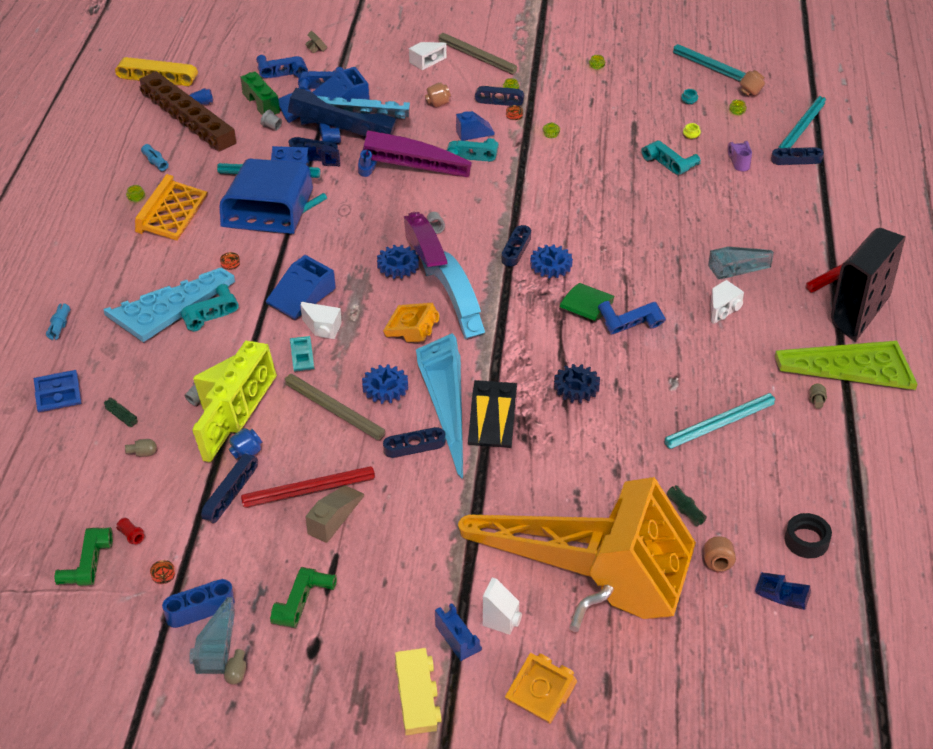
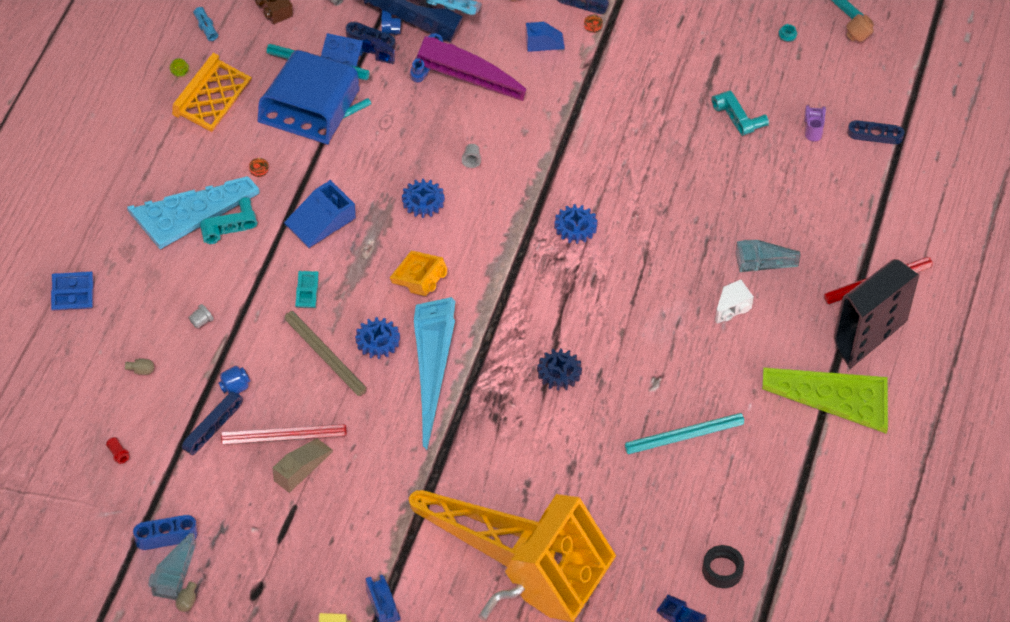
camera: 10 degrees right, 10 degrees up
(58, 321) = (82, 212): dark azure pin -> none
(86, 572) = (72, 486): green beam -> none
(120, 412) = (127, 324): clear green axle -> none
(162, 572) = (139, 495): clear orange tile -> none
(231, 394) = (230, 327): neon yellow wedge -> none
(291, 612) = (242, 556): green beam -> none
(321, 319) = (333, 254): white slope -> none
(398, 440) = (396, 398): dark blue beam -> none
(424, 239) = (450, 184): magenta slope -> none
(460, 293) = (470, 246): medium azure arch -> none
(482, 151) = (535, 70): teal beam -> none
(492, 414) = (470, 389): black slope -> none
(500, 608) = (423, 586): white slope -> none
(517, 252) = (546, 205): dark blue beam -> none
(551, 130) = (625, 54): clear neon green plate -> none
(585, 301) = (597, 277): green slope -> none
(648, 313) = (653, 303): blue beam -> none
(686, 505) = (622, 516): clear green pin -> none
(691, 131) = (774, 80): neon yellow plate -> none
(719, 554) = (635, 570): nougat head -> none
(737, 107) = (835, 56): clear neon green plate -> none
(802, 124) = (897, 90): teal axle -> none
(818, 395) = (788, 423): dark tan cylinder -> none

